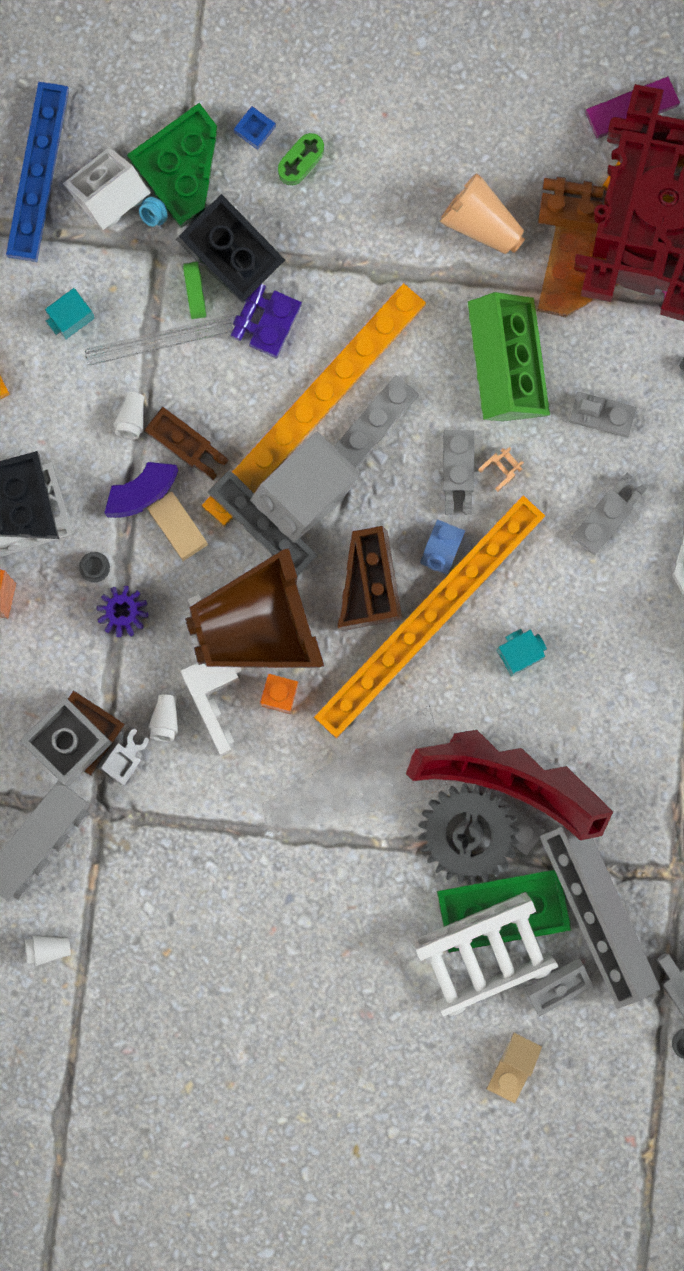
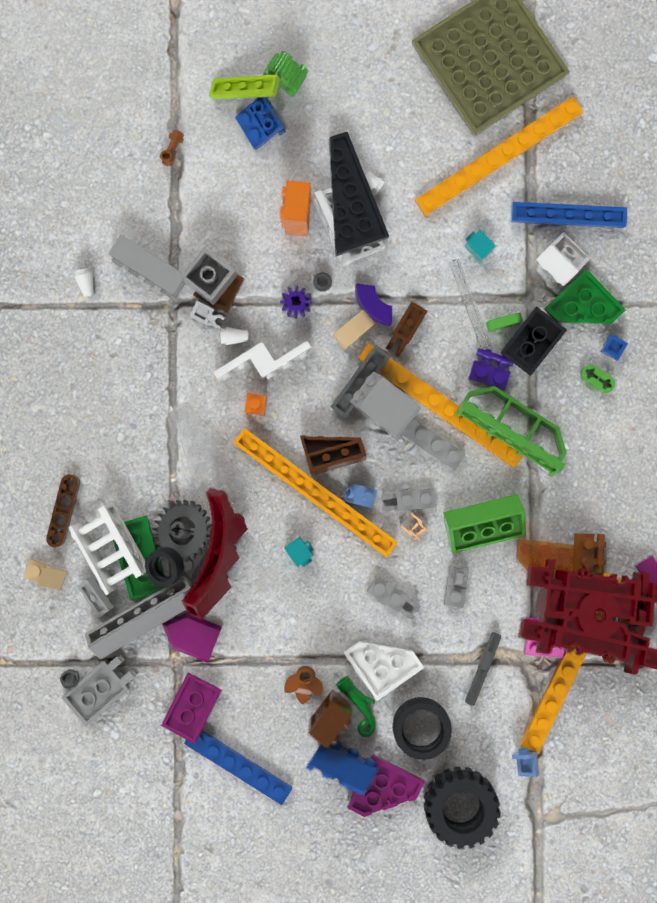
camera: 90 degrees right, 5 degrees up
(130, 418) = (419, 292): white cone -> none
(153, 212) = (551, 290): medium azure plate -> none
(255, 621) = (295, 384): reddish brown cone -> none
(372, 308) = (505, 434): none -> bright green plate
(412, 1031) = (60, 509): none -> reddish brown beam
(483, 217) = (573, 498): light nougat cone -> none
(532, 884) = (152, 569): none -> black tyre
(638, 838) = (192, 636): none -> magenta tile

